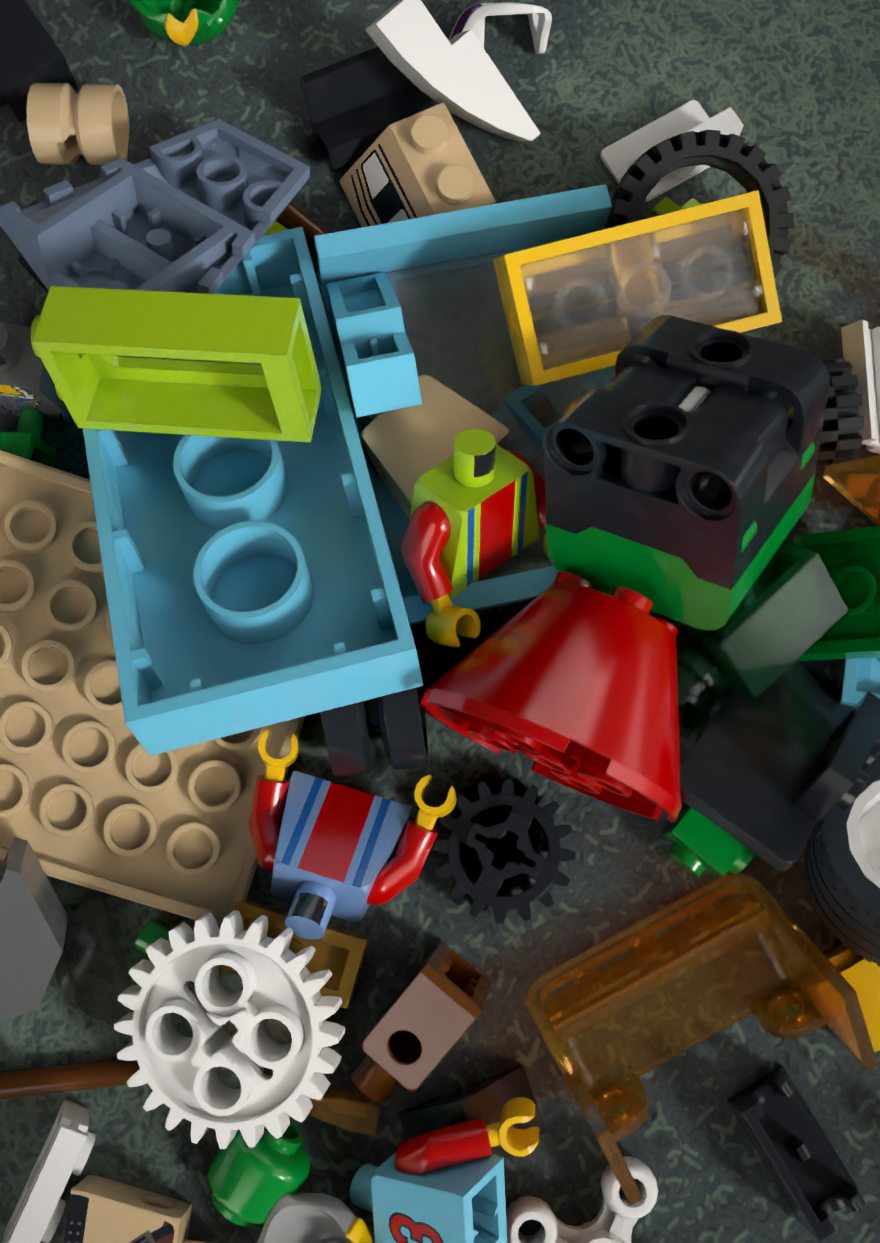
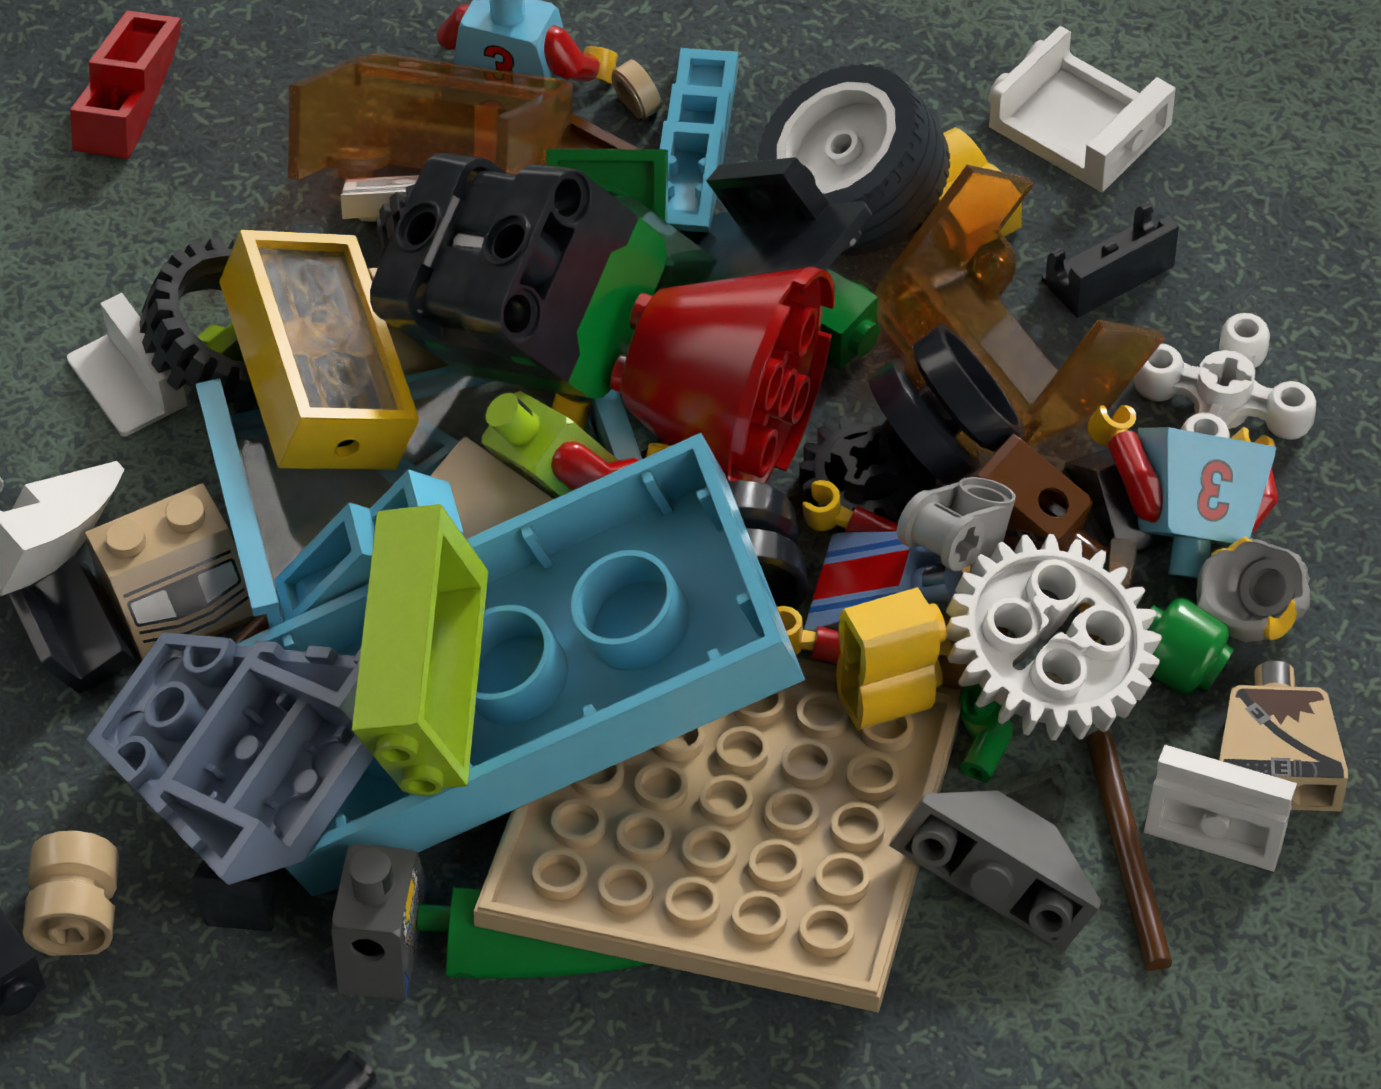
camera: 90 degrees left, 25 degrees down
(217, 854) = (889, 658): none -> yellow brick
(351, 932) = (958, 520): none -> light grey piece
(542, 939) = (945, 405): none -> black wheel

